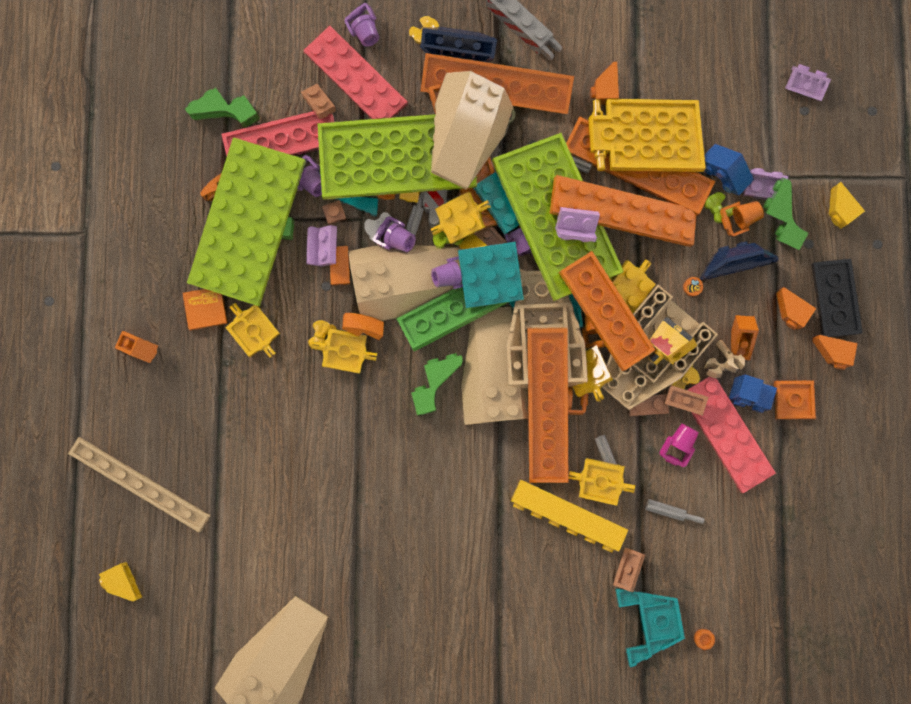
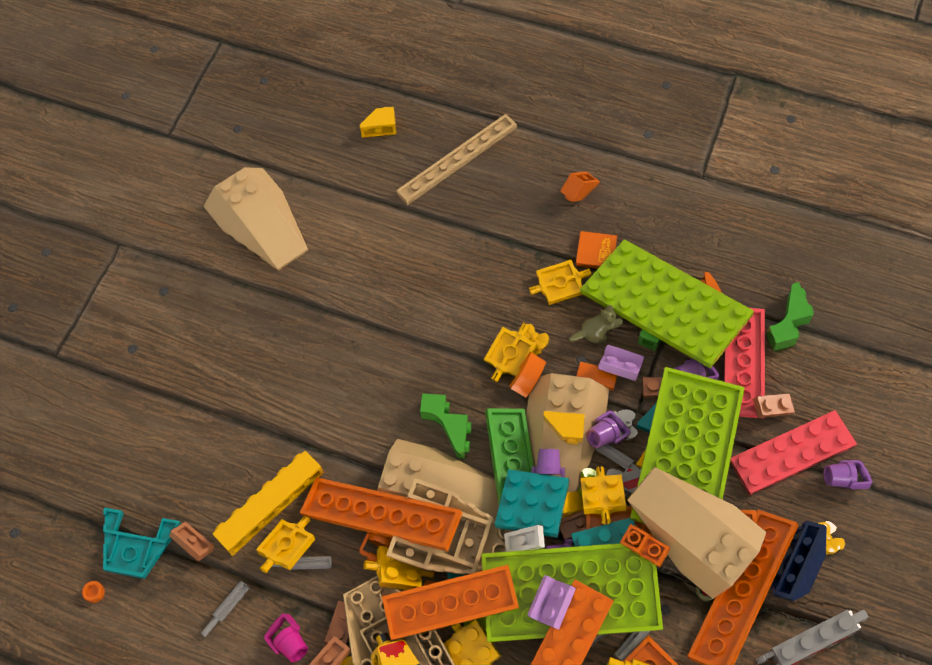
camera: 115 degrees right, 20 degrees down
(293, 279) = (595, 328): none -> olive animal
(407, 268) = (567, 426): none -> yellow slope
(501, 162) = (645, 545): none -> orange slope
(530, 267) = (525, 539): none -> white plate

